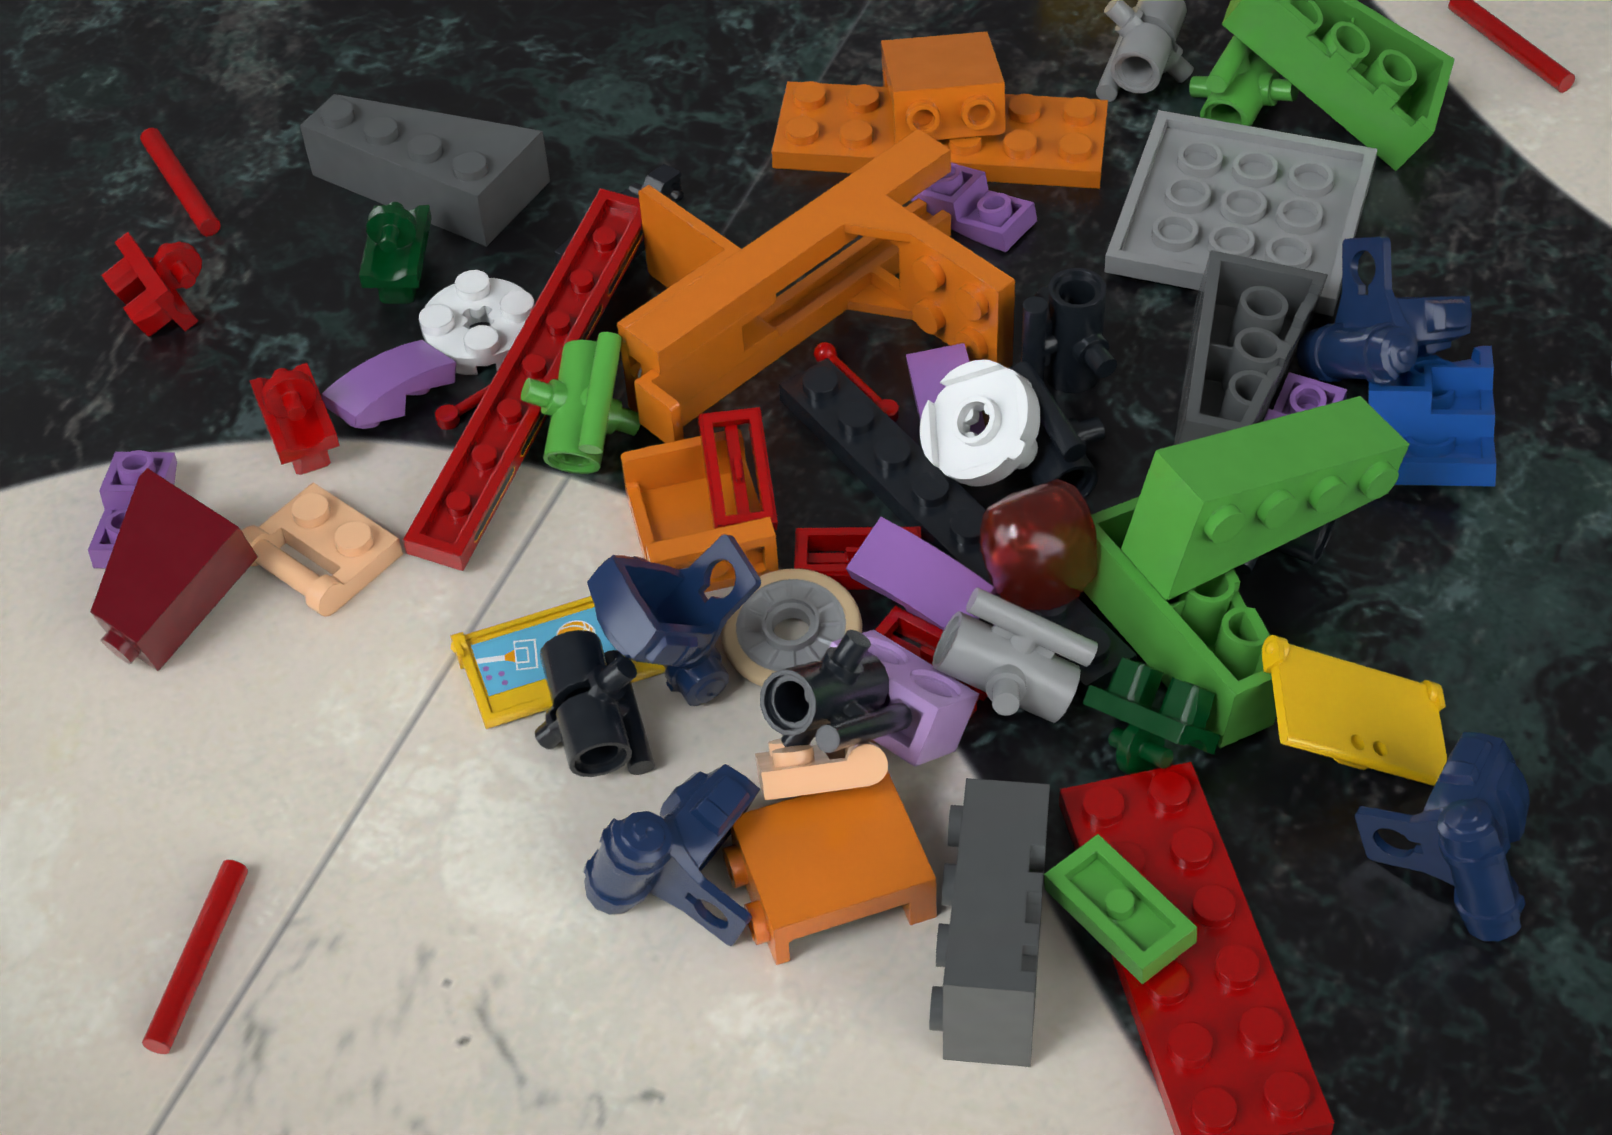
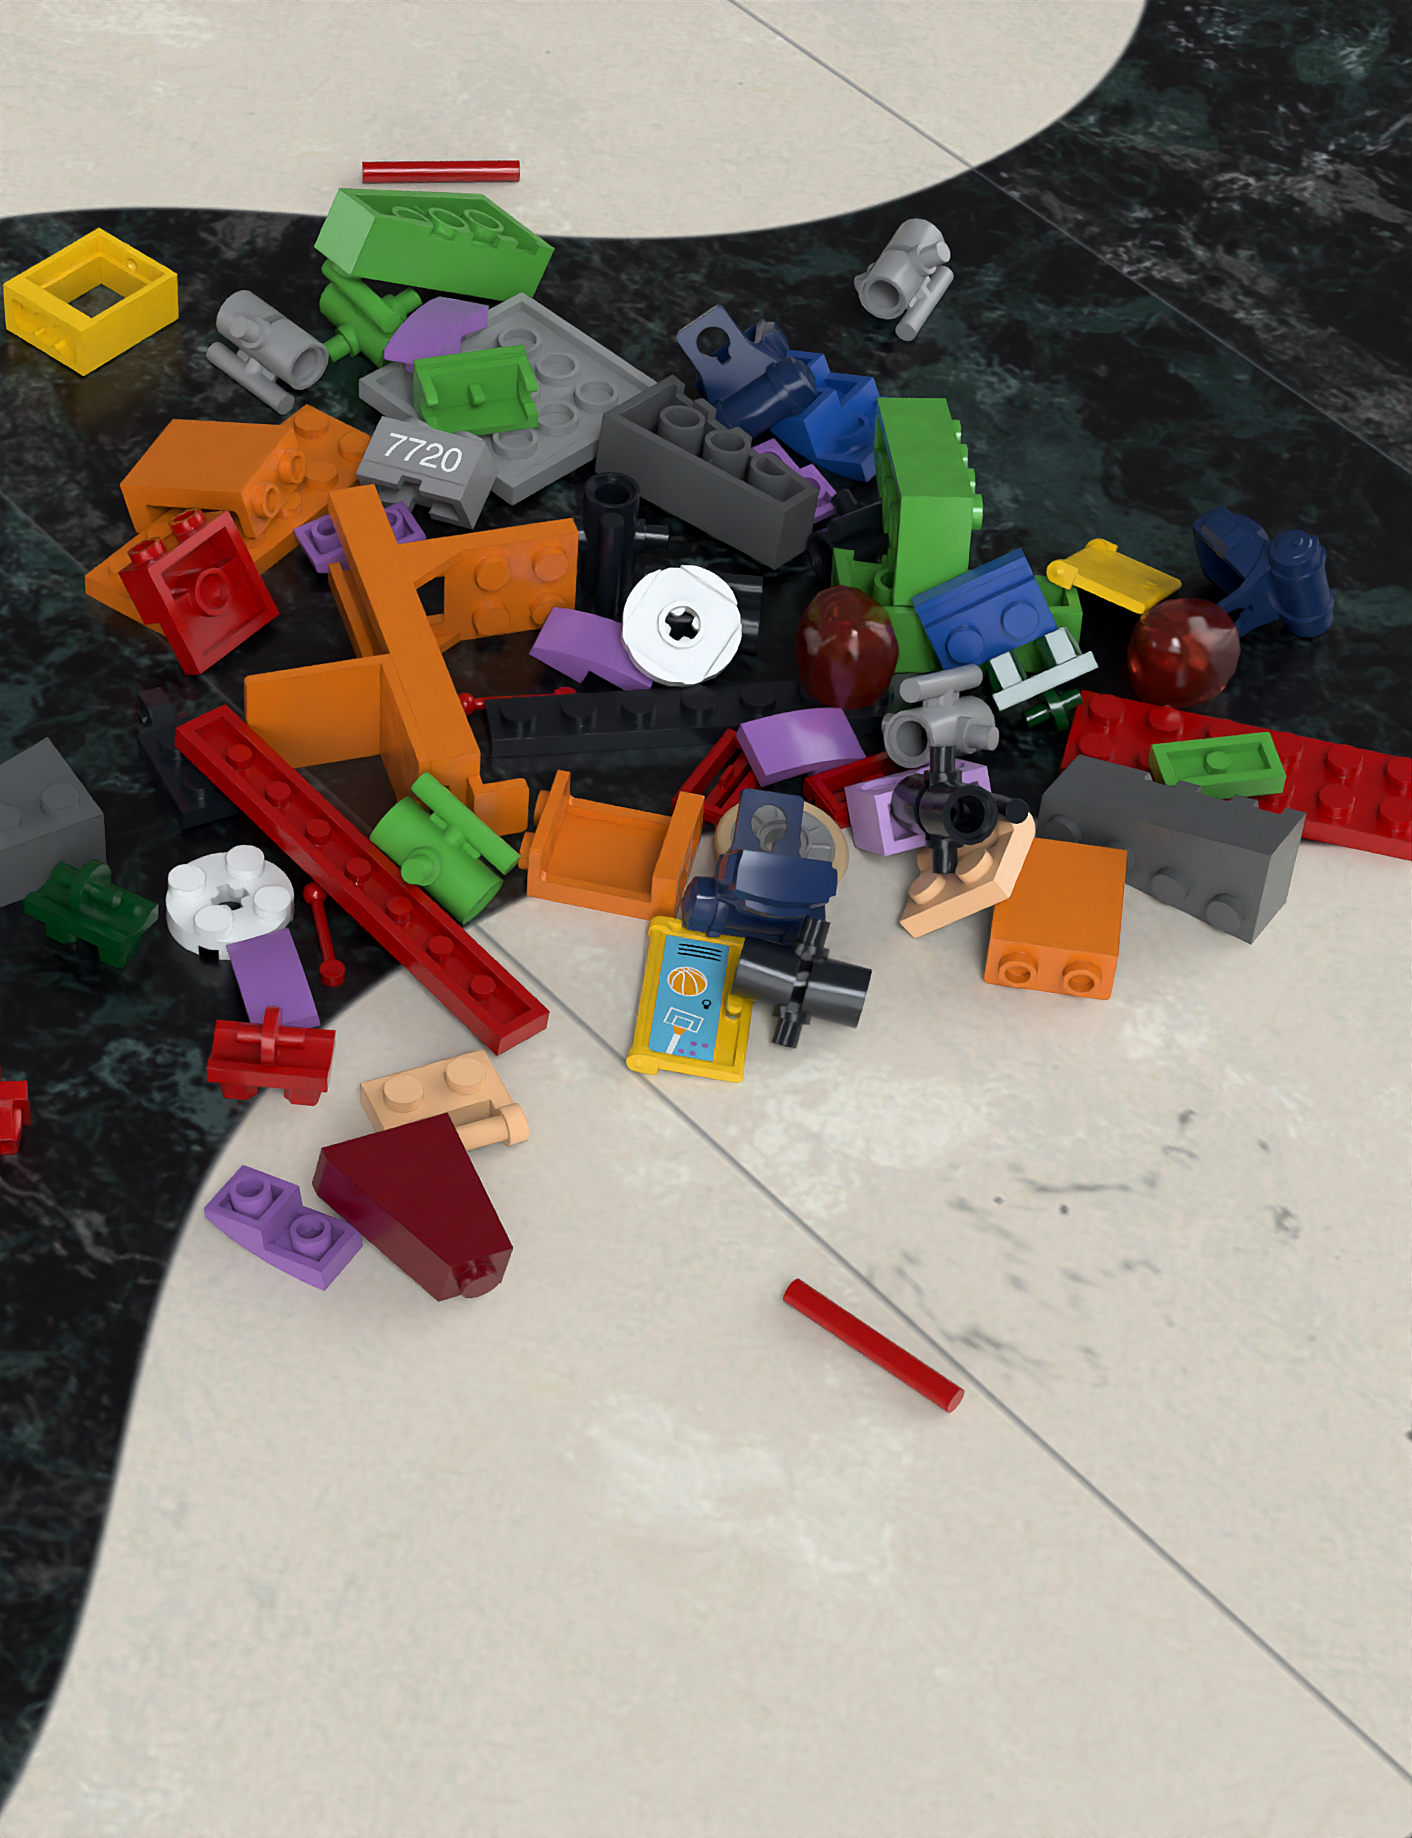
camera: 70 degrees left, 5 degrees down
(670, 851) = (998, 982): dark blue piece -> none
(730, 420) = (608, 791): red tile -> none
(793, 133) = (199, 587): none -> red plate
(1070, 197) = (429, 469): none -> light grey brick
(1159, 618) = (985, 612): none -> blue plate
(1183, 172) = (476, 391): none -> bright green hinge
(1226, 114) = (435, 330): none -> medium lavender slope
(1295, 813) = (1182, 653): none -> clear red piece

